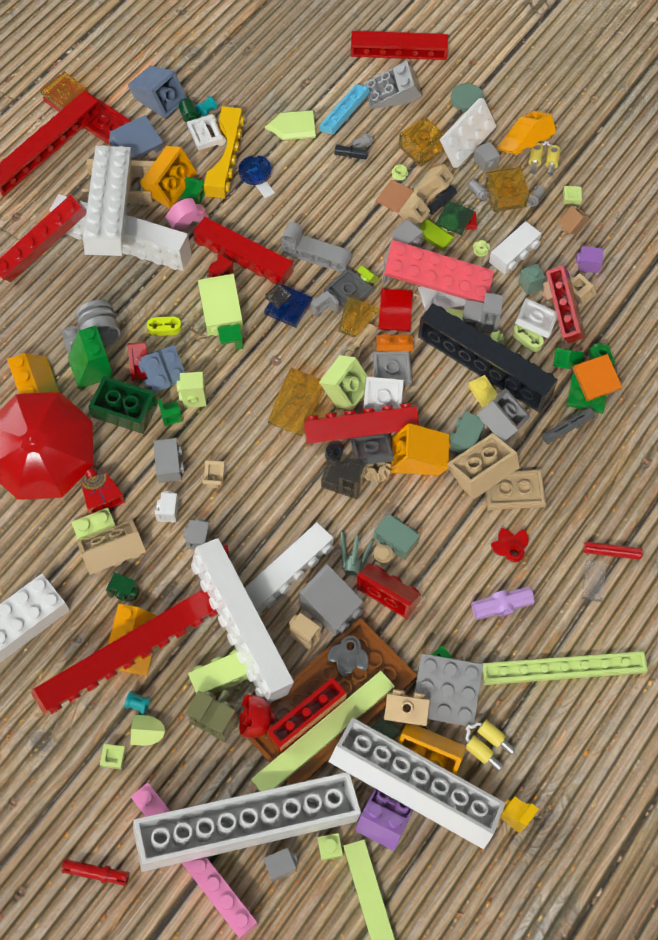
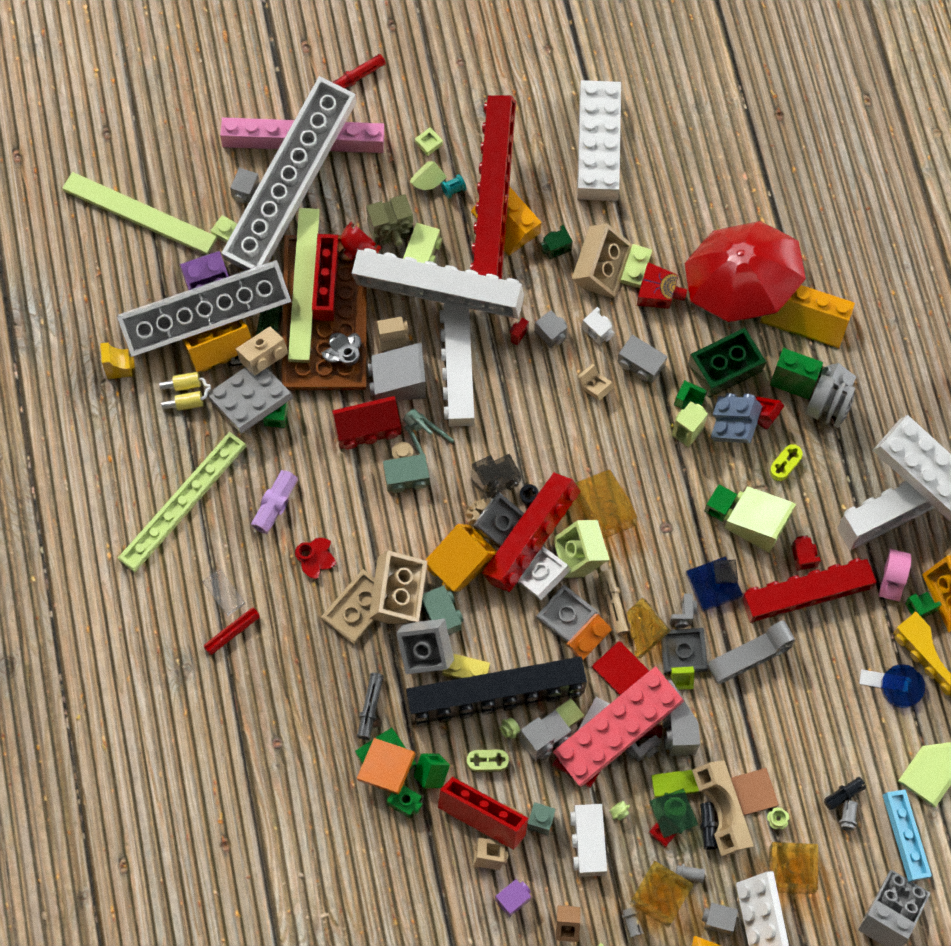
camera: 130 degrees right, 5 degrees up
(536, 318) = (497, 778): white plate -> none

